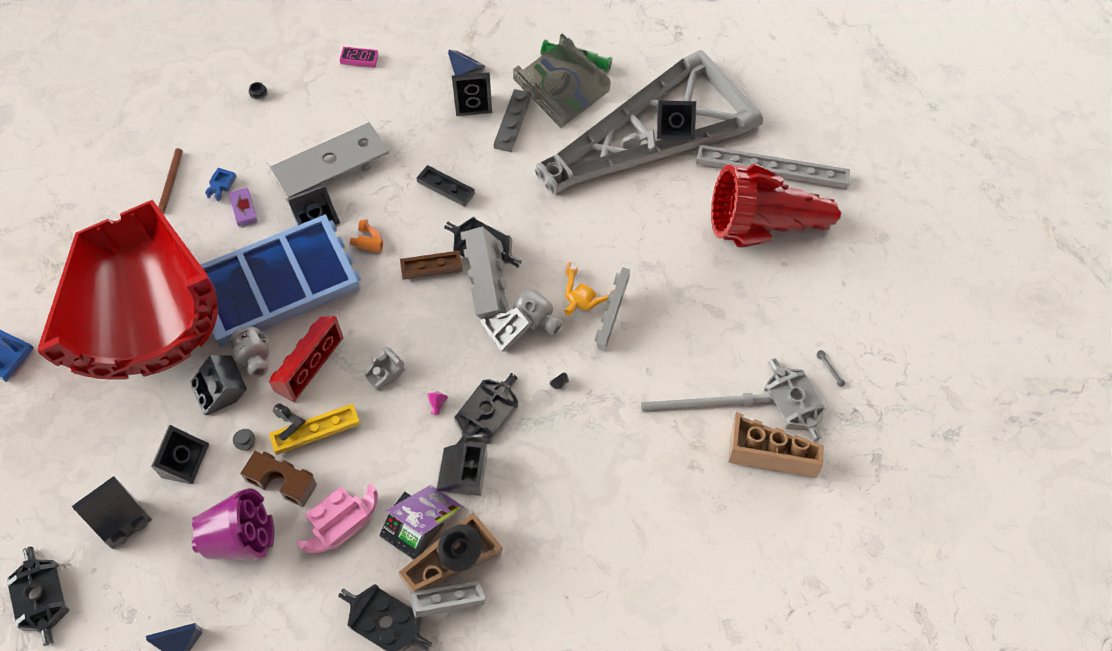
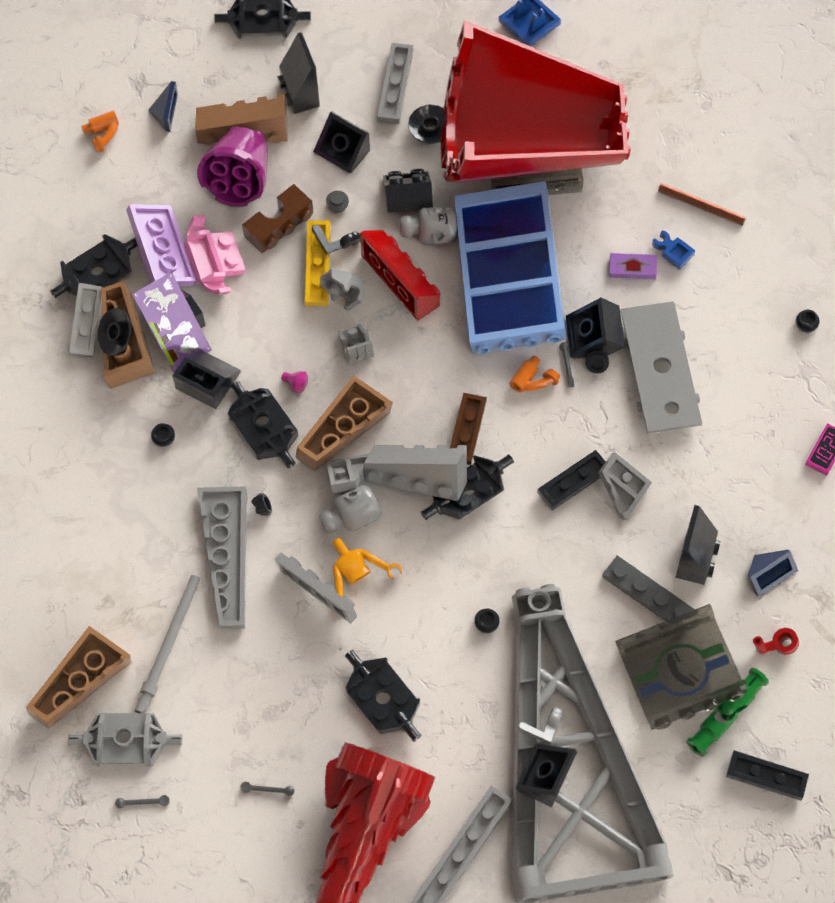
camera: 115 degrees right, 5 degrees up
(97, 439) = (395, 83): none -> light grey plate
(132, 388) = (426, 117): none -> black dish
(174, 534) = (264, 116): none -> medium nougat wedge
(336, 390) = (345, 285): none -> light grey hand
(340, 201) = (597, 361): none -> black plate
(342, 566) = (161, 243): none -> lavender plate
(361, 215) = (564, 347): none -> dark grey hinge
(438, 153) = (623, 484): none -> light grey wing
(464, 347) = (346, 419): none -> medium nougat wedge
(521, 48) = (776, 644): none -> red plate
(530, 485) = (163, 435): none -> black plate
(579, 203) = (486, 620): none -> black plate
(598, 396) = (225, 536): none -> light grey wing
(607, 27) = (767, 775): none -> black plate
(671, 230) = (378, 677): none -> black plate
(779, 305) = (246, 787): none -> dark grey hinge

